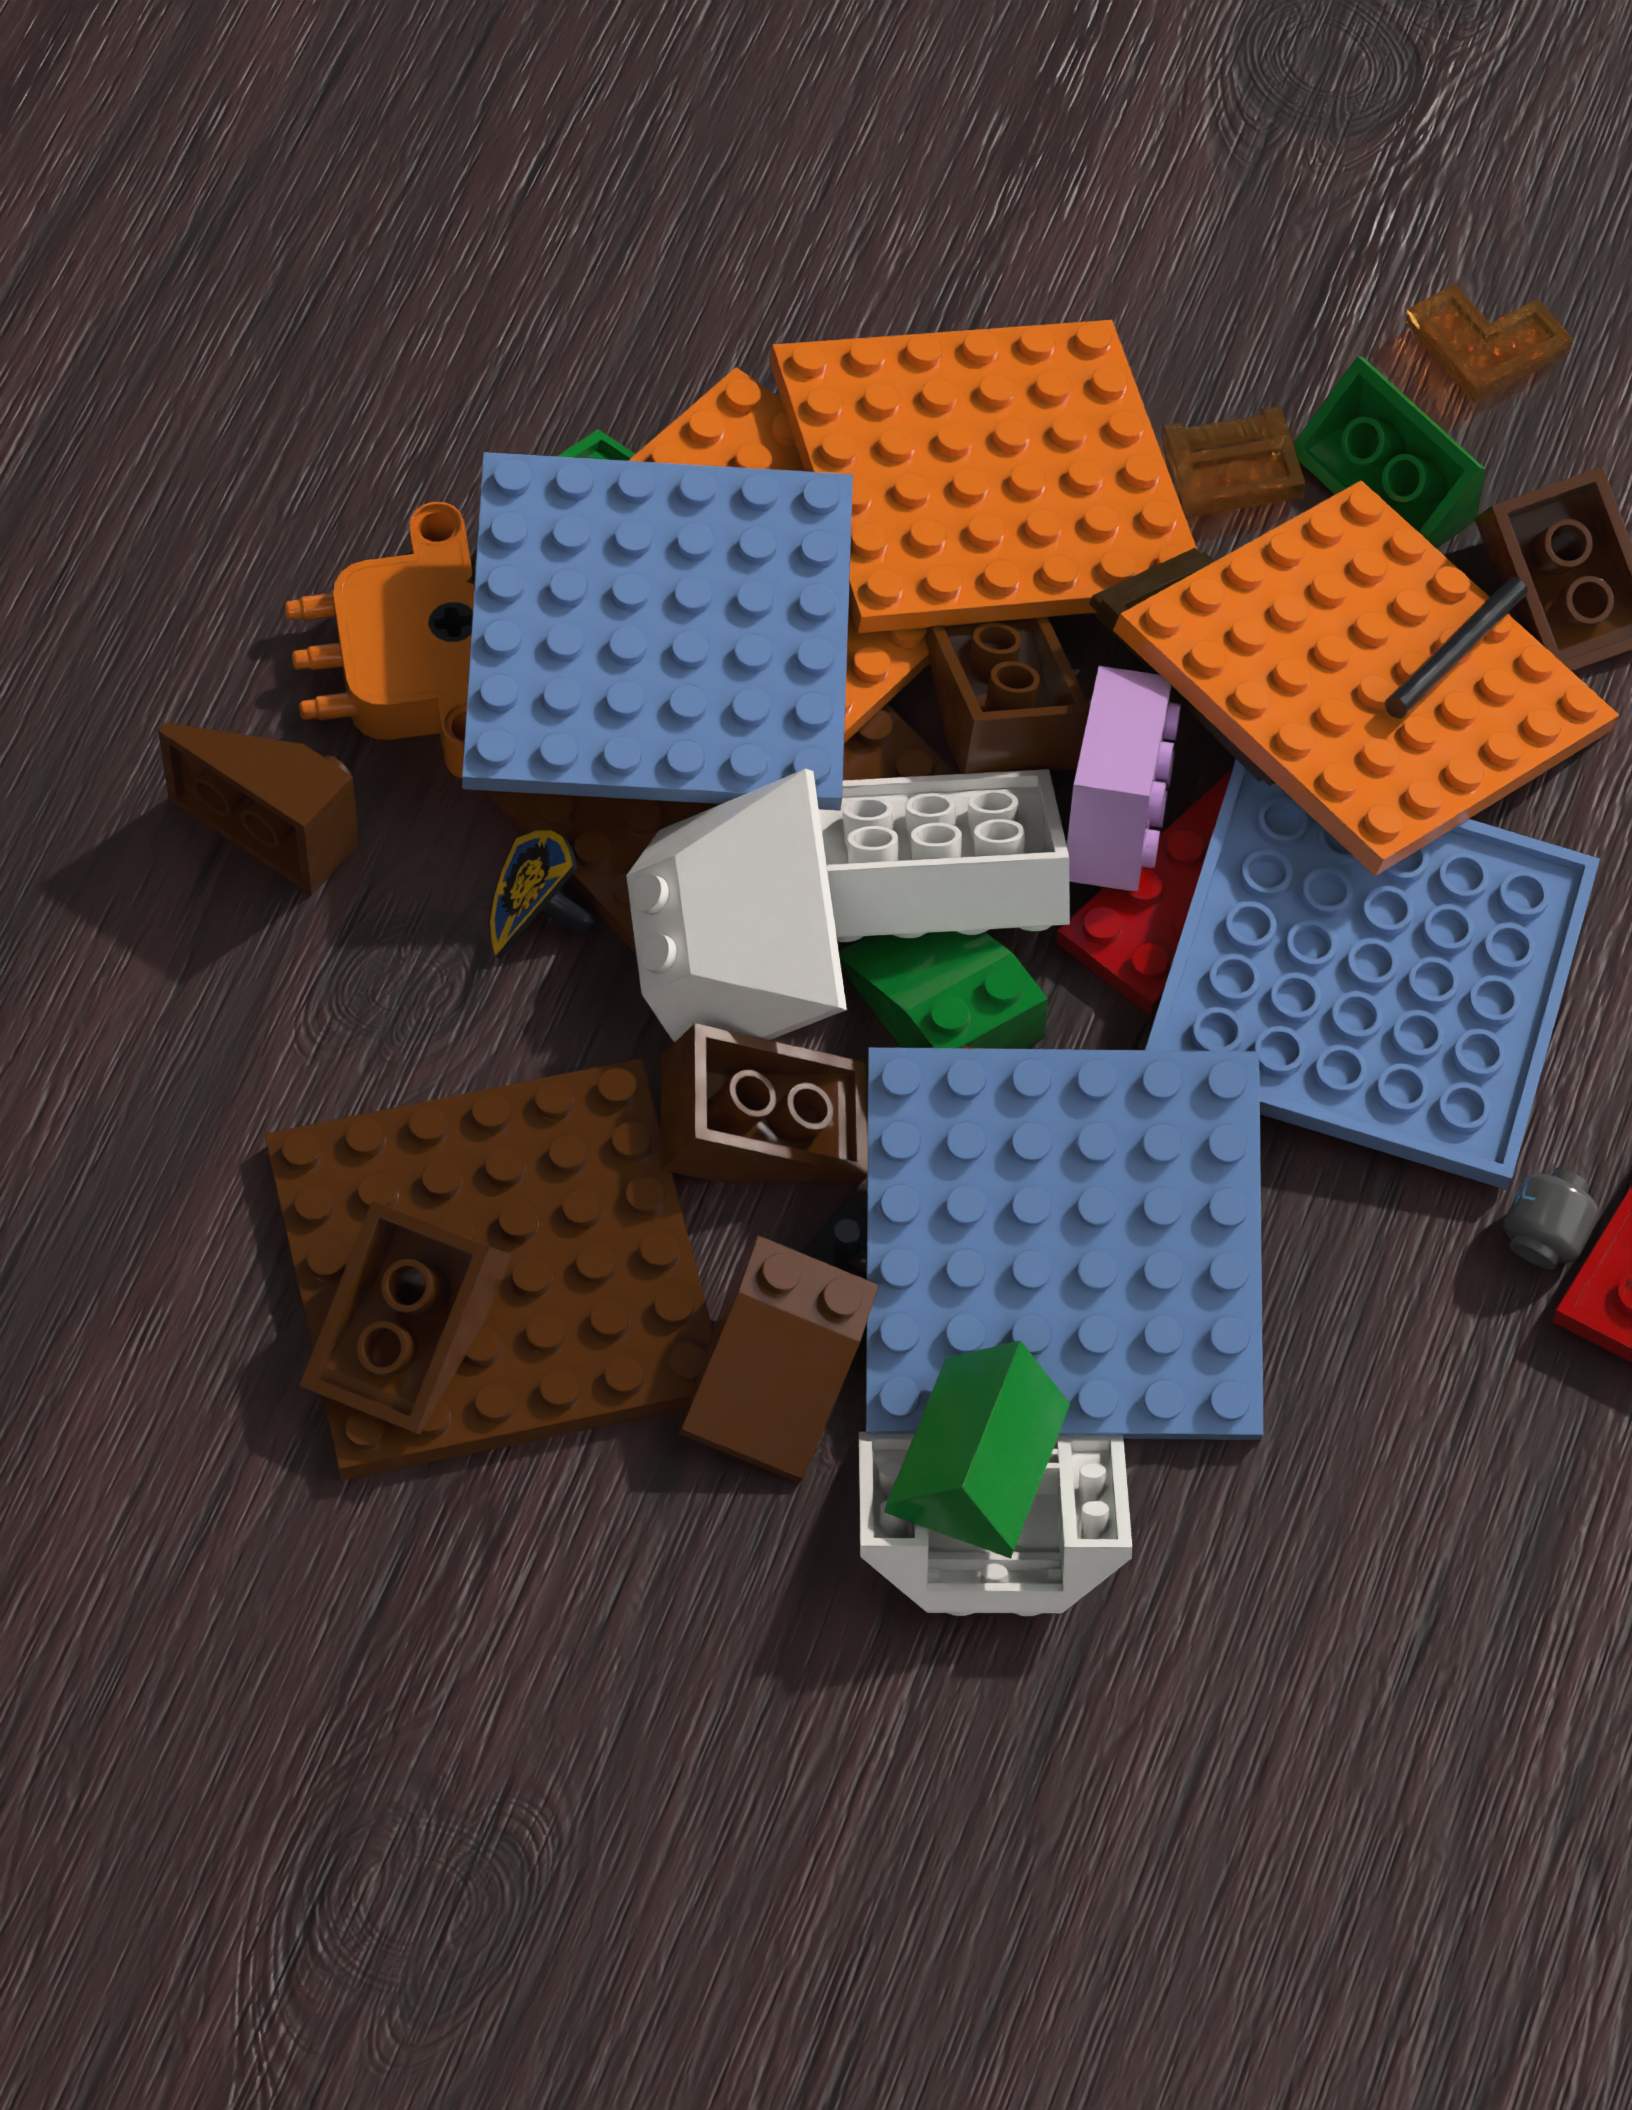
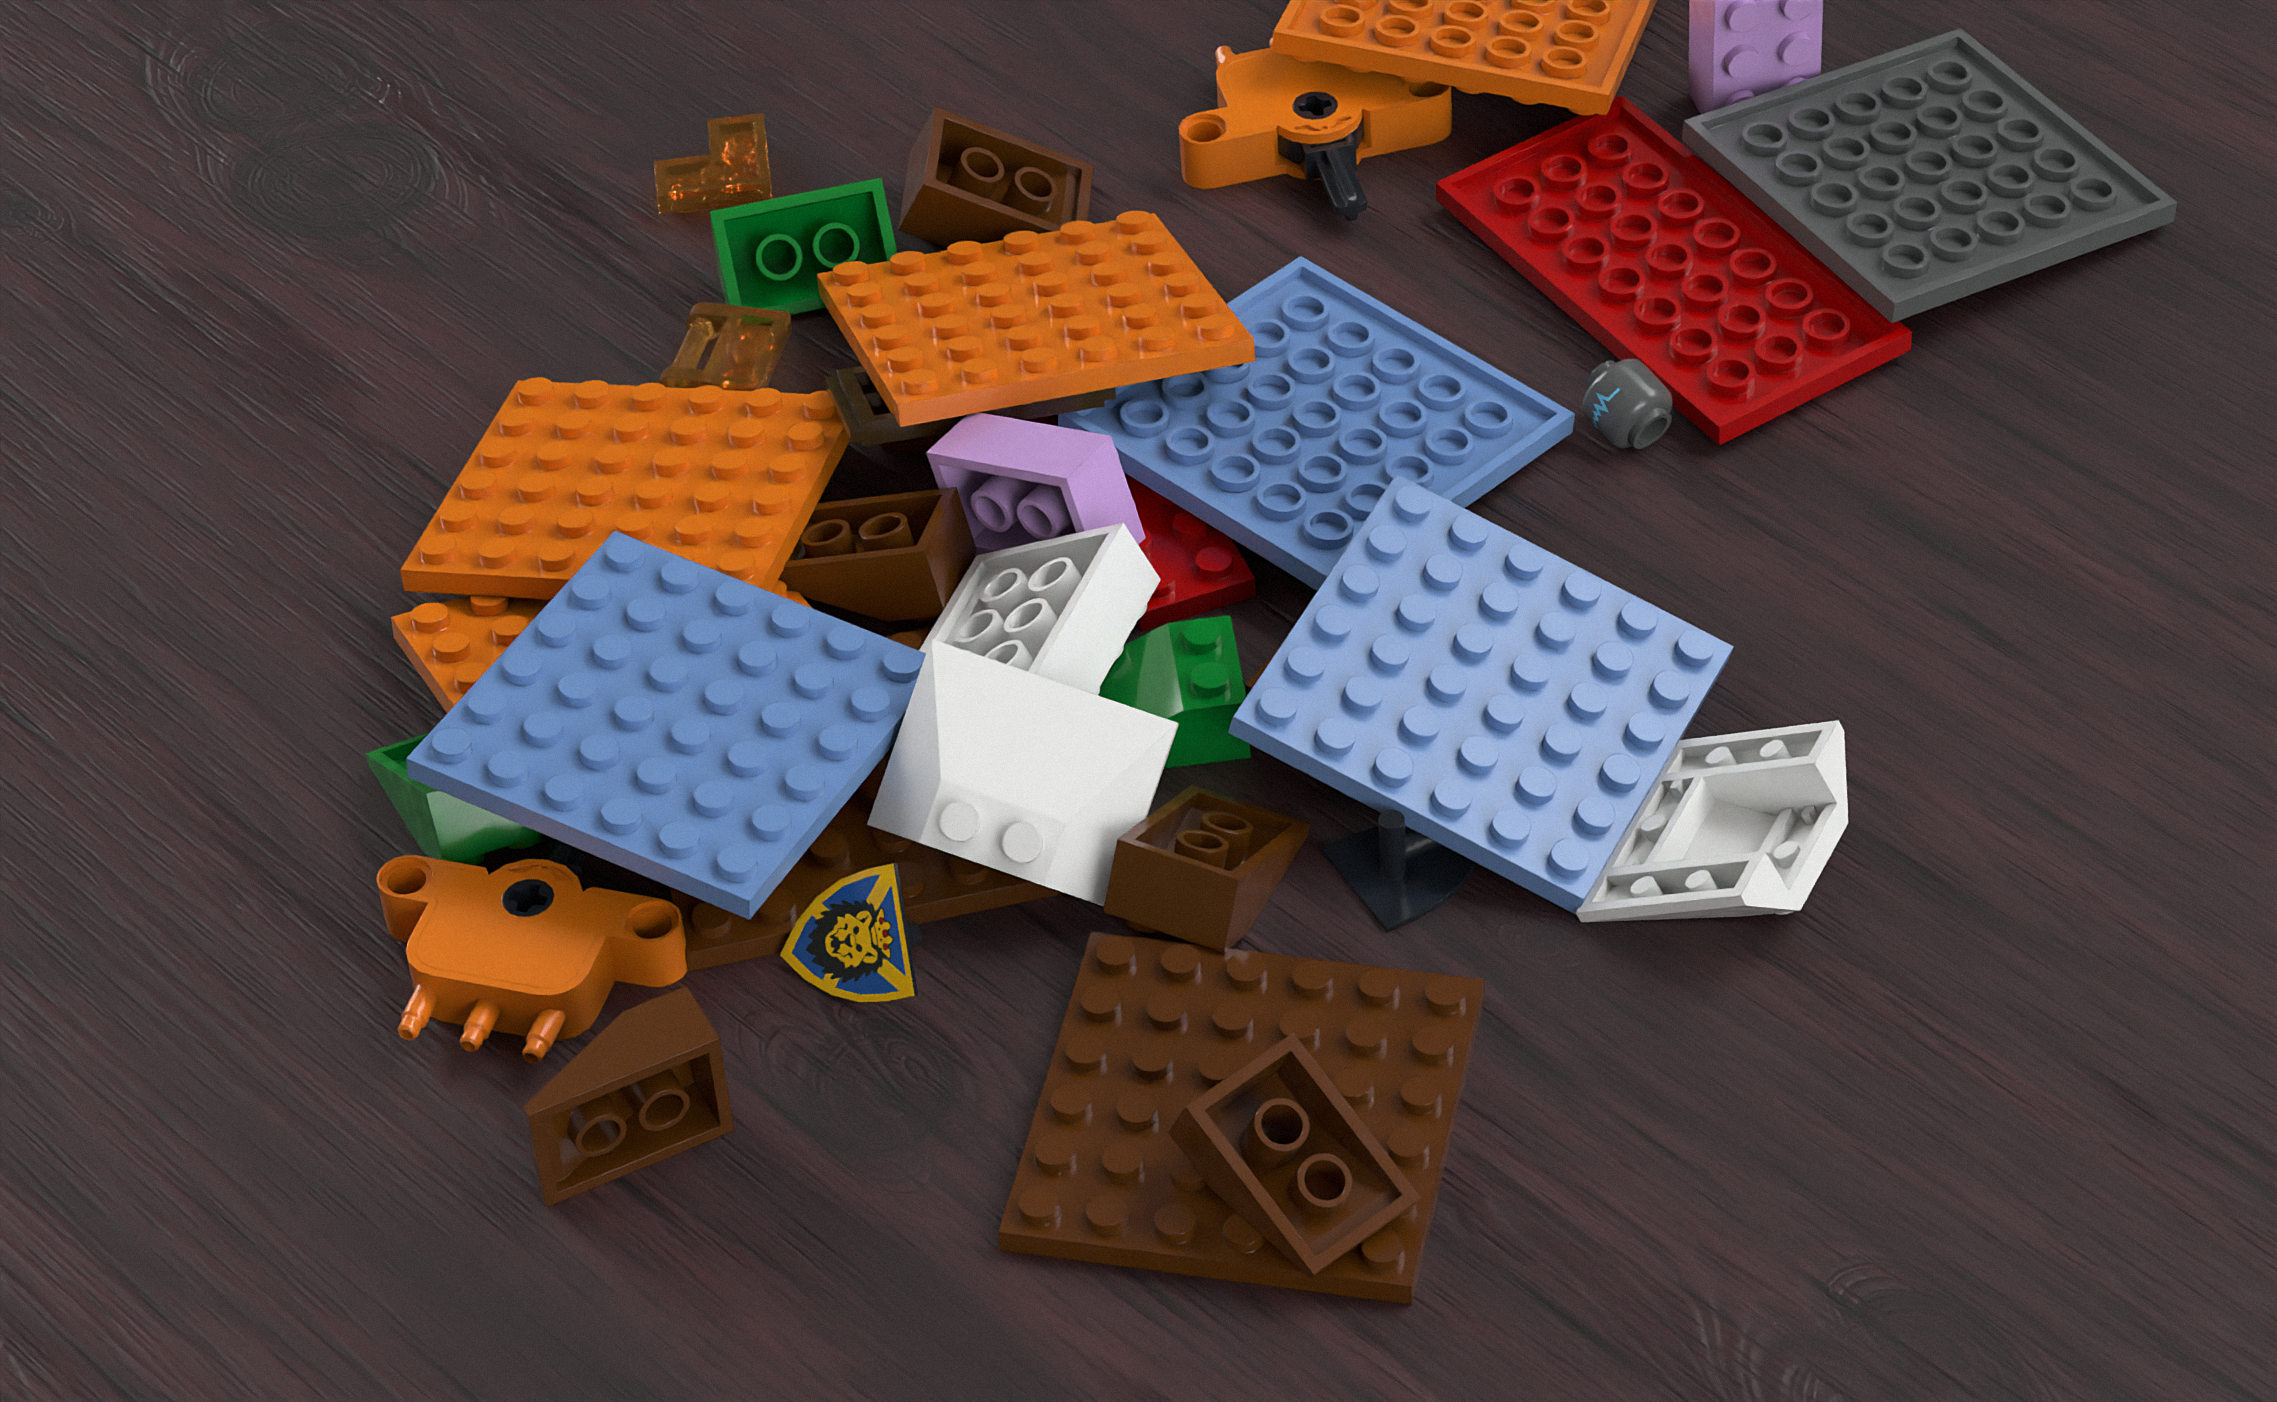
camera: 60 degrees left, 15 degrees down
(777, 1358) = (1481, 918): reddish brown slope -> none
(981, 1448) = (1669, 798): green slope -> none
(1455, 648) = (1050, 251): black bar -> none

